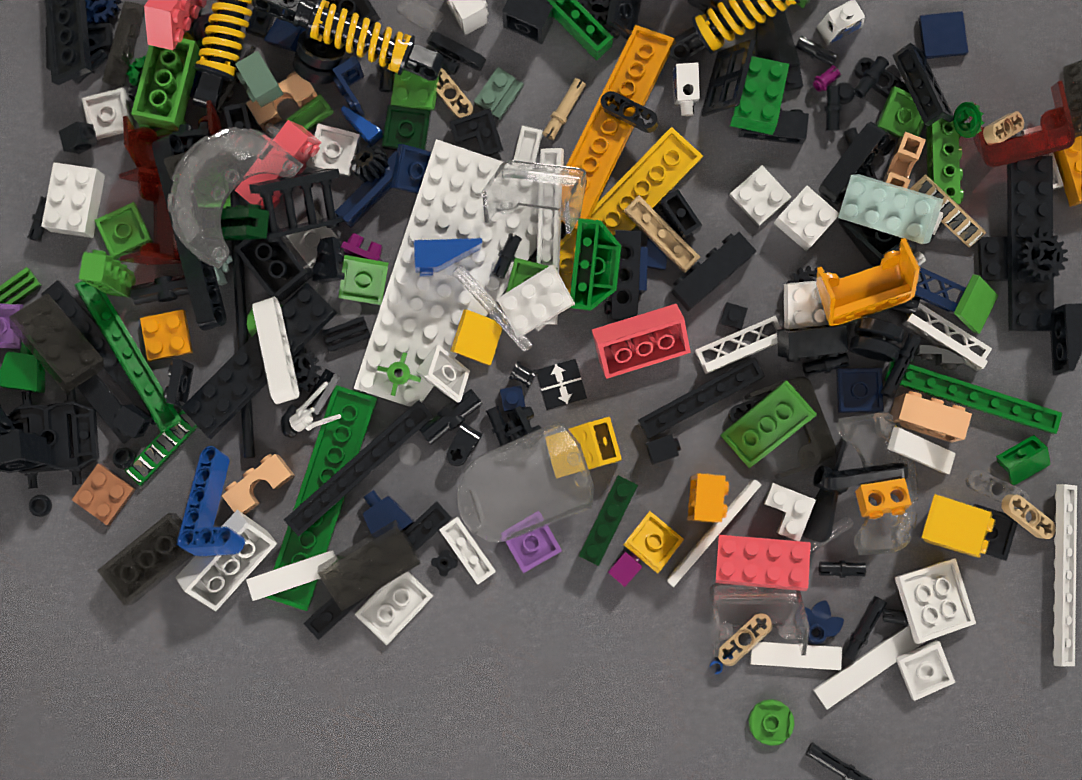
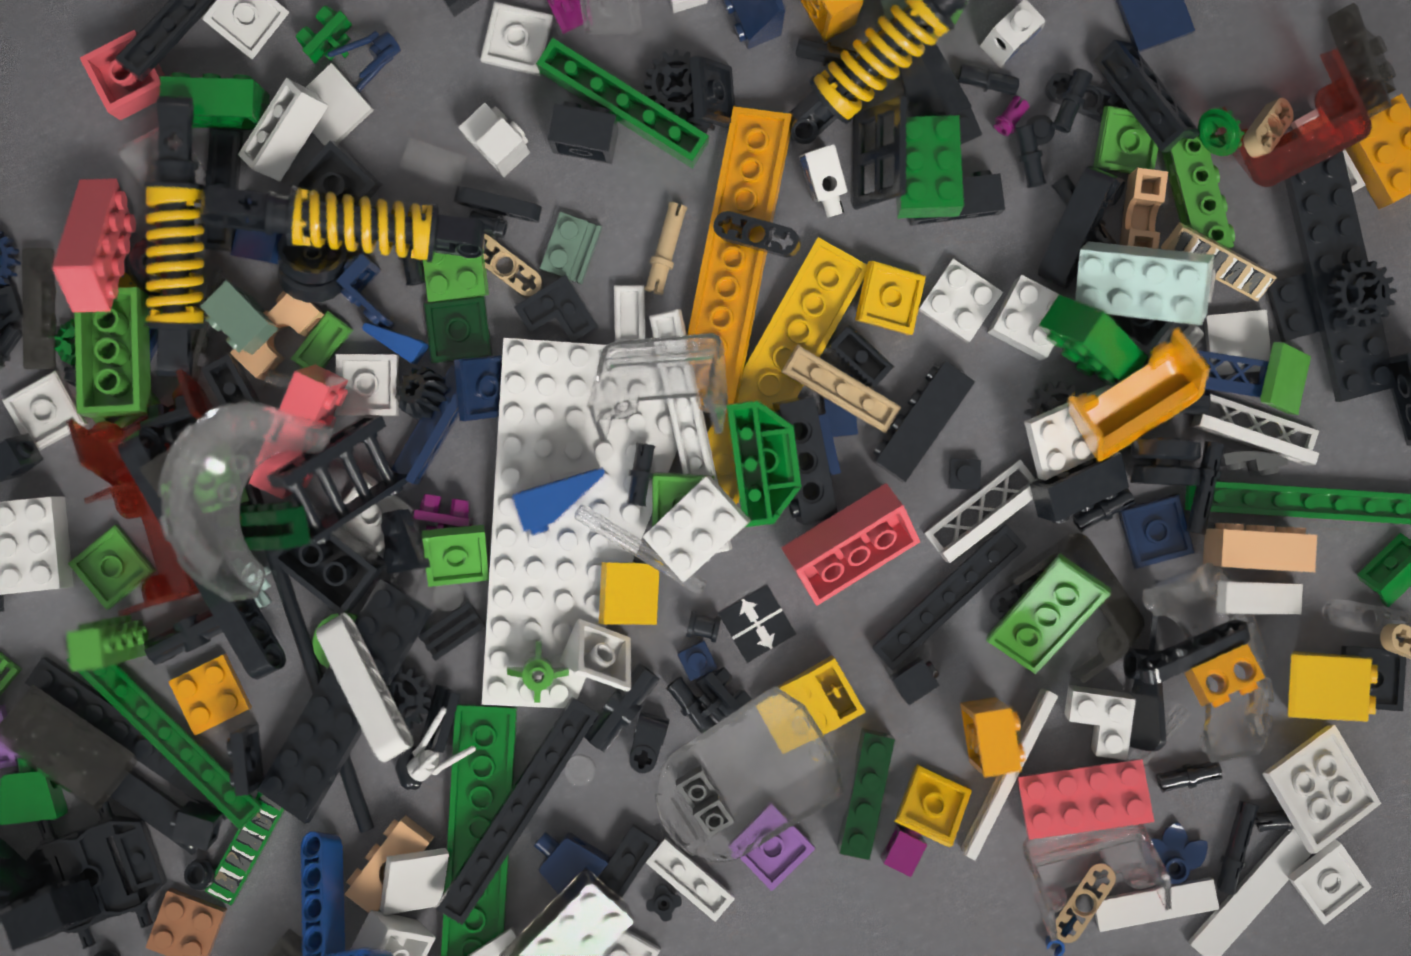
camera: 25 degrees left, 5 degrees up
(272, 498) = (414, 881): none -> white tile
(492, 497) = (705, 801): none -> dark grey slope
(711, 181) = (890, 298): none -> yellow tile
(844, 239) = (1091, 341): none -> green brick
(950, 265) = (1238, 335): none -> white tile

